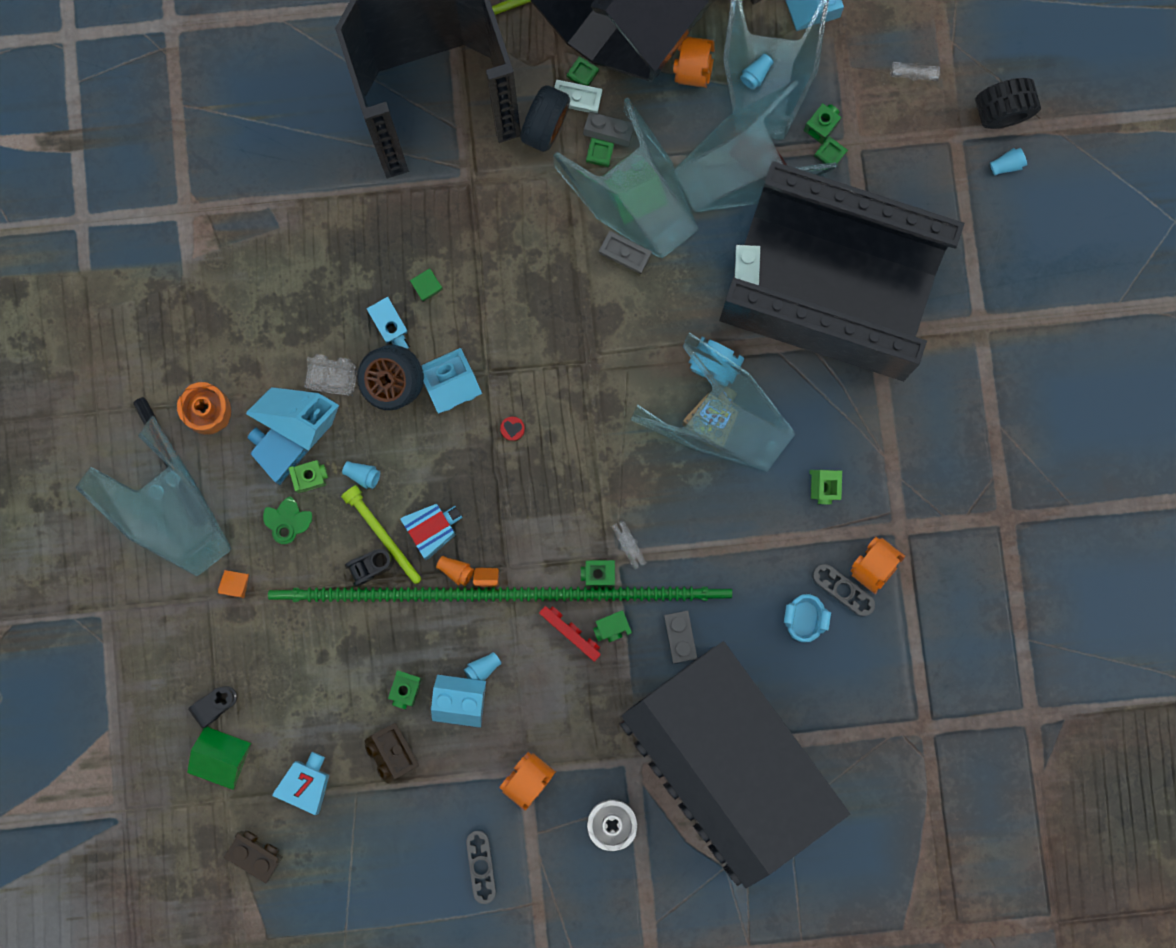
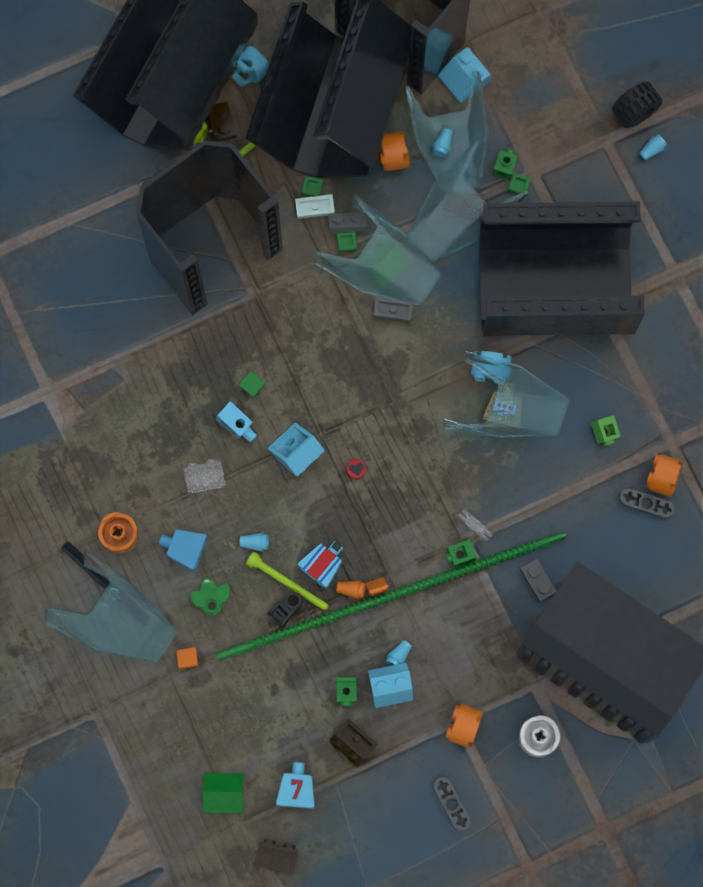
camera: 20 degrees left, 5 degrees down
(210, 707) = (202, 757): black piece -> none
(295, 414) = (189, 513): medium azure slope -> none
(302, 484) = (214, 564): bright green brick -> none
(390, 377) = (243, 470): wheel -> none
(545, 118) = (298, 230): black wheel -> none
(571, 632) = (455, 605): red plate -> none
(612, 627) = (485, 590): green brick -> none
(747, 263) = (487, 286): light aqua plate -> none
(806, 618) = (627, 533): medium azure piece -> none
(915, 71) = (559, 104): clear pin -> none

